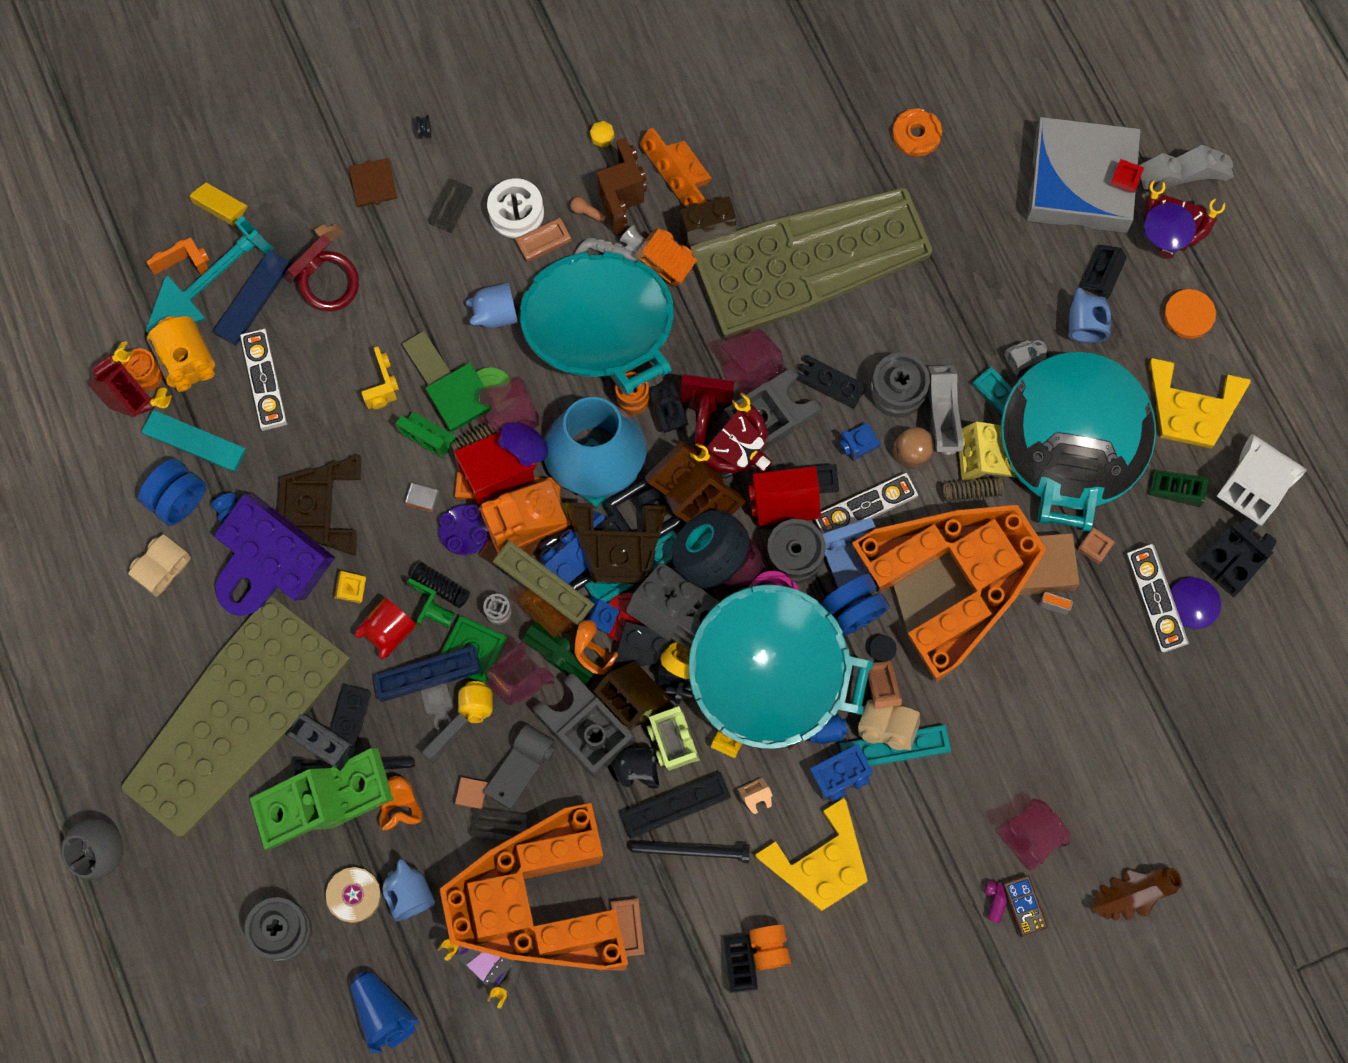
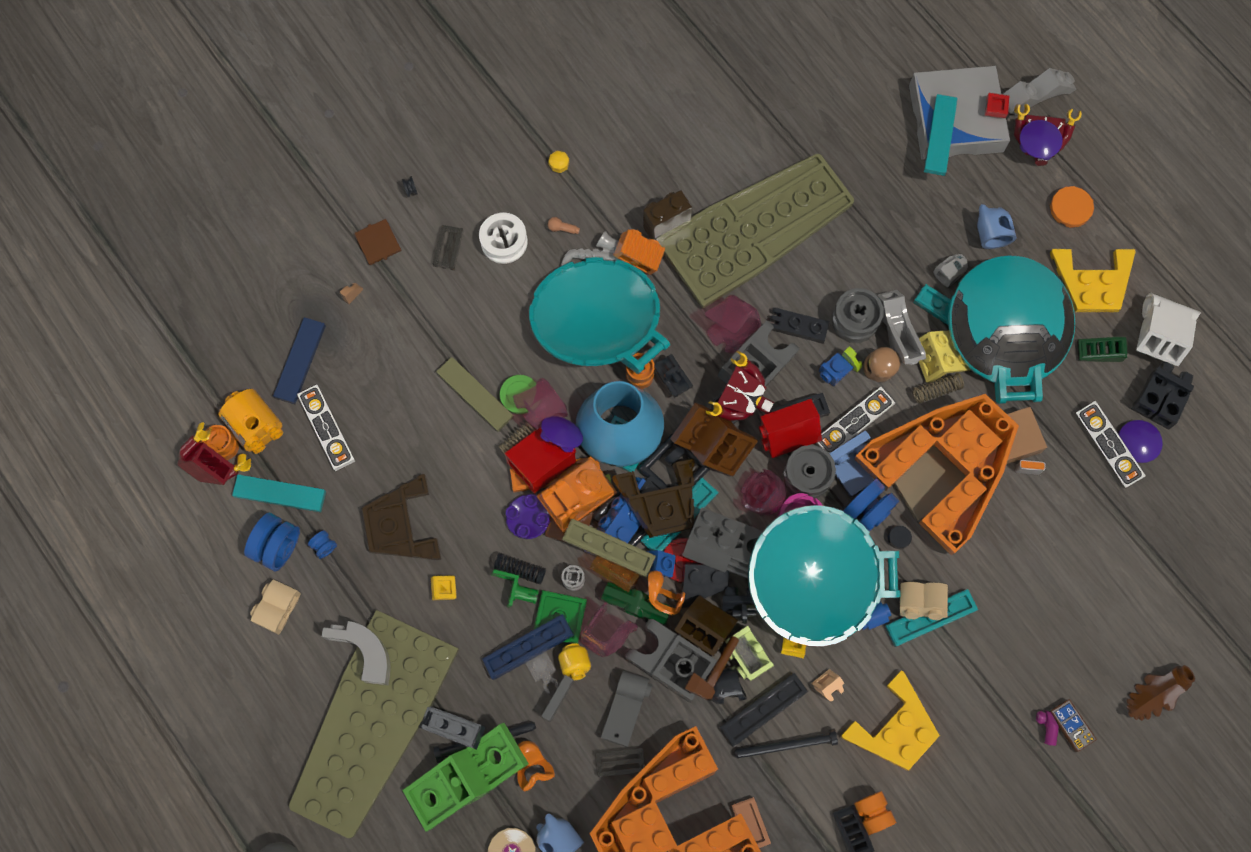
camera: 15 degrees left, 0 degrees up
(176, 303) = (238, 379): teal piece -> none
(177, 253) = (228, 334): orange bracket -> none
(218, 203) = (251, 287): yellow slope -> none
(255, 642) = (375, 655): none -> light grey arch
(269, 554) = (368, 576): dark purple brick -> none
(310, 262) = (342, 321): dark red tile -> none
(351, 714) = (470, 697): black hinge -> none
(381, 395) = (429, 419): yellow bracket -> none
(385, 627) = (483, 615): red piece -> none
(422, 497) = (485, 497): flat silver piece -> none
(425, 434) = (475, 443): green bracket -> none
(458, 397) = (496, 406): green tile -> none
(471, 793) = (590, 740): nougat tile -> none
(493, 307) = (506, 324): medium blue piece -> none
(543, 240) = (532, 259): nougat tile -> none
(611, 764) = (704, 688): none -> reddish brown piece
(621, 186) = (587, 200): reddish brown bracket -> none
(676, 660) = (737, 587): yellow hat -> none
(677, 166) = (628, 176): orange bracket -> none
(706, 396) = (703, 360): dark red tile -> none
(710, 548) = (740, 487): black wheel -> none
(841, 773) = (895, 649): blue bracket -> none
(878, 428) = (849, 354): none -> lime tile
(884, 685) = (911, 569): nougat tile -> none
(915, 145) = (810, 116): orange tile -> none
(1035, 833) = (1067, 663): clear pink piece -> none
(1051, 196) = (940, 135): none -> teal tile
(1096, 545) = (1048, 412): nougat tile -> none
(1104, 270) = (994, 186): black slope -> none

